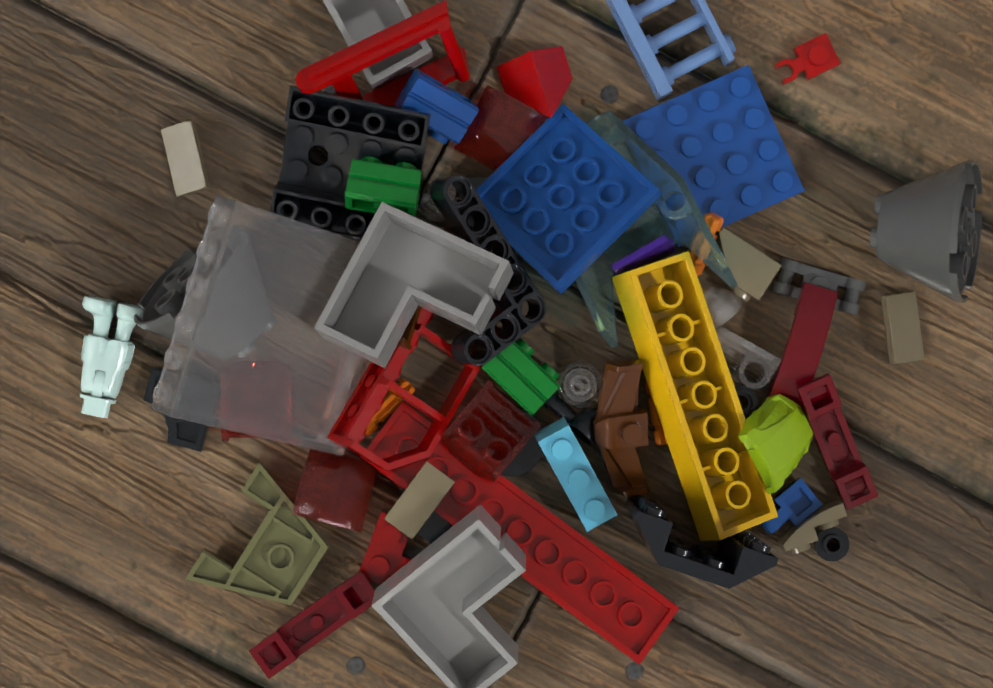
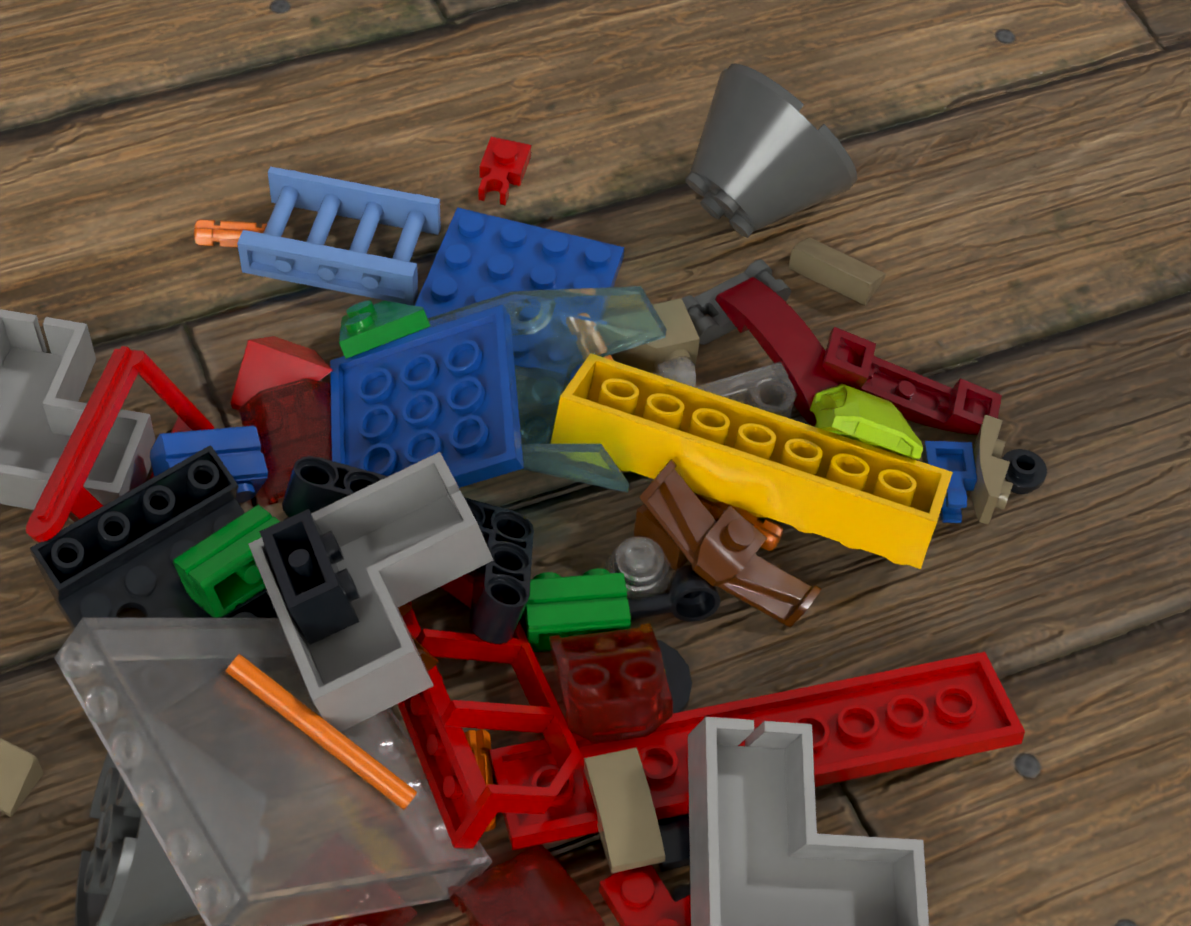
camera: 55 degrees left, 35 degrees down
(312, 336) = (321, 731): none -> orange bar
(388, 253) = (309, 576): none -> black brick
(575, 474) = (738, 632): medium azure brick -> none
(605, 110) = (377, 324): none -> green wing
(646, 255) = (557, 379): dark purple piece -> none
(735, 561) = (899, 574): black slope -> none

